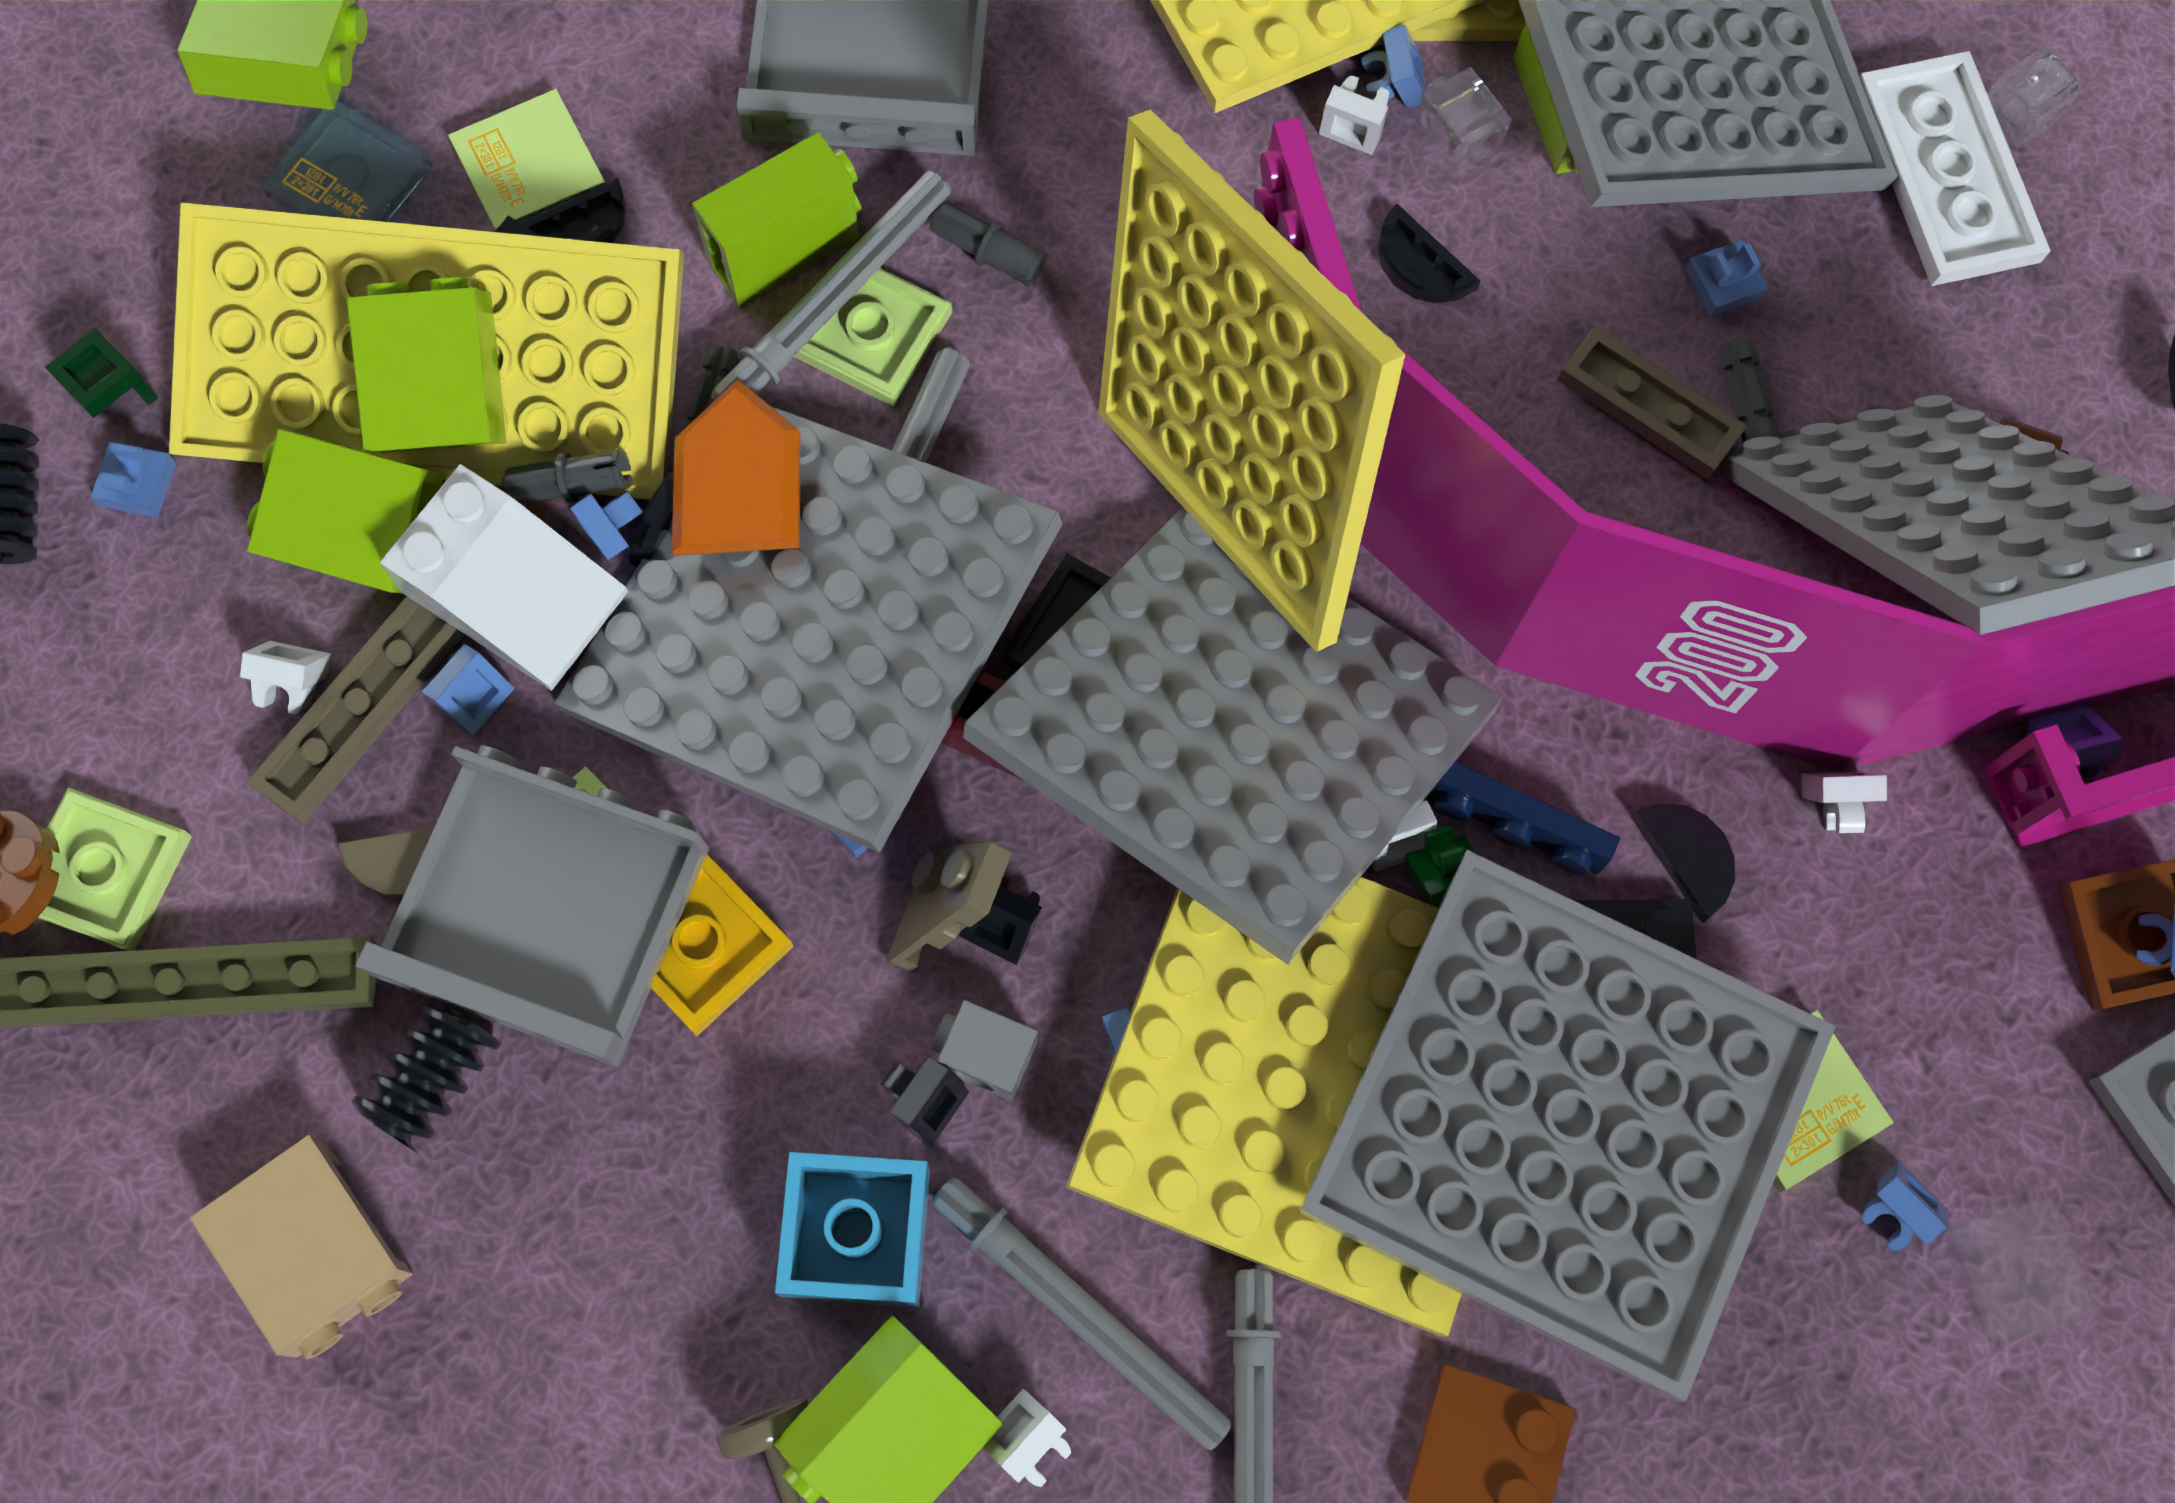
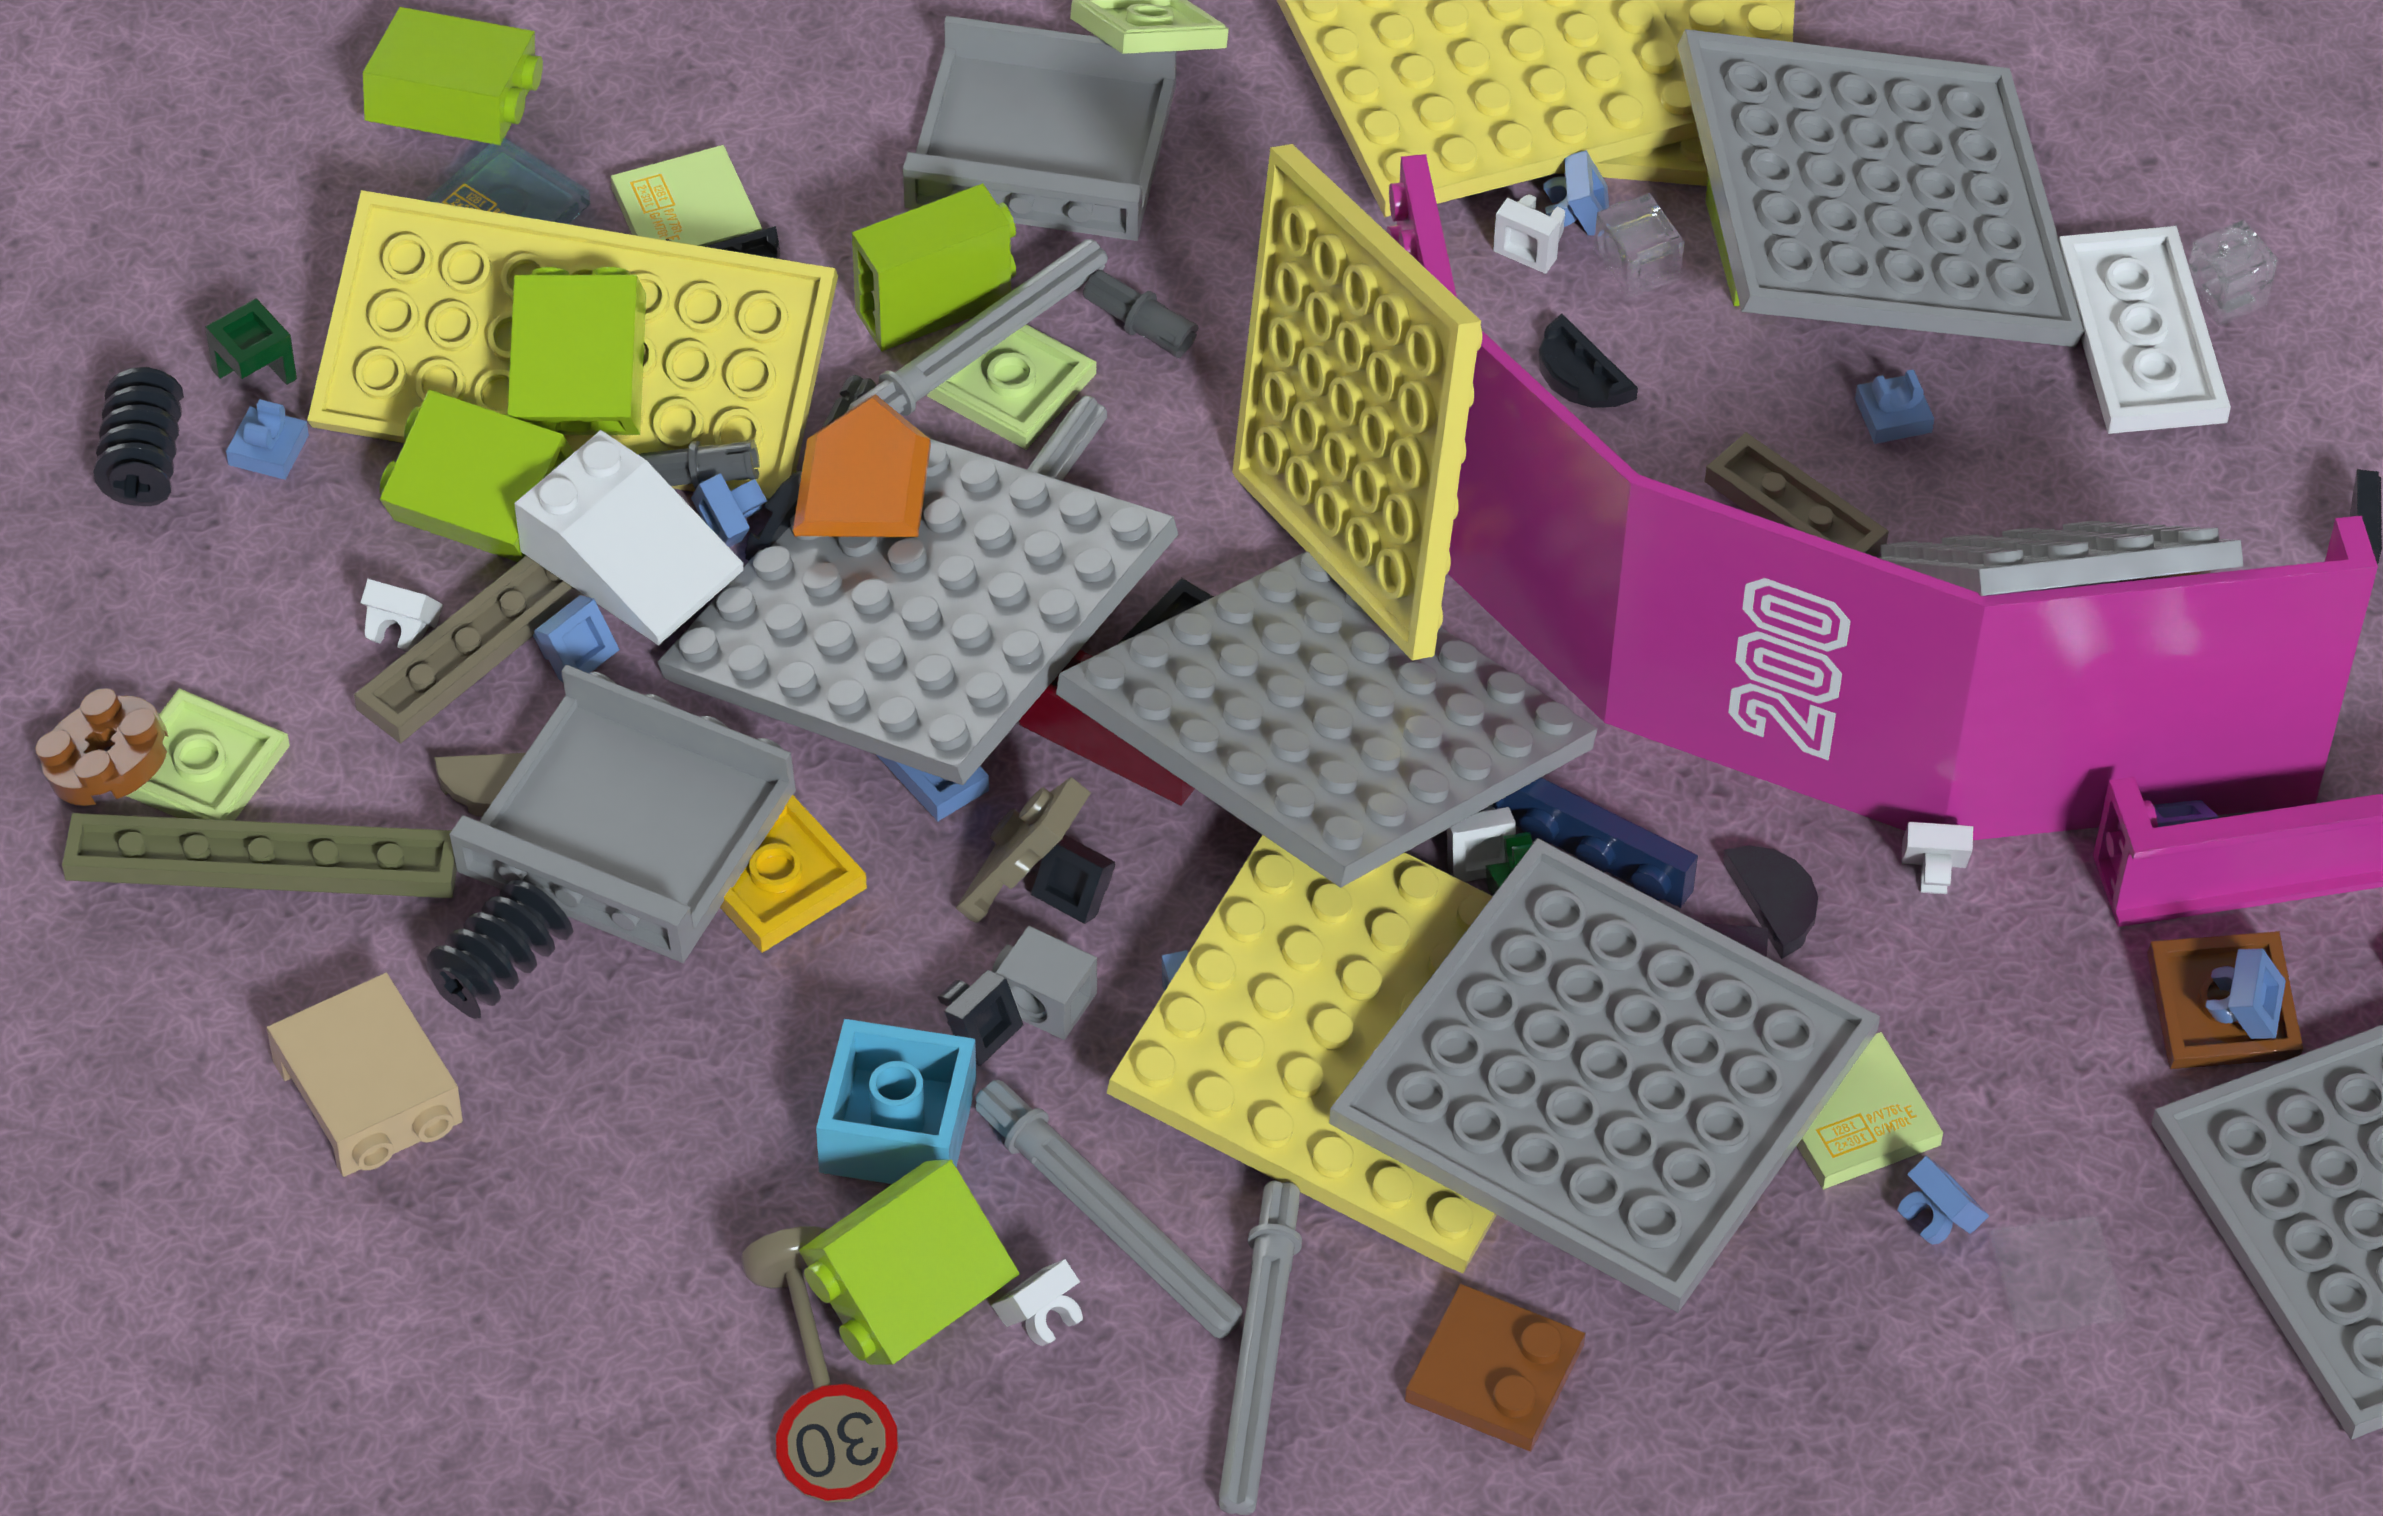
camera: 10 degrees right, 20 degrees down
(1748, 388) = (1899, 500): dark grey axle -> none

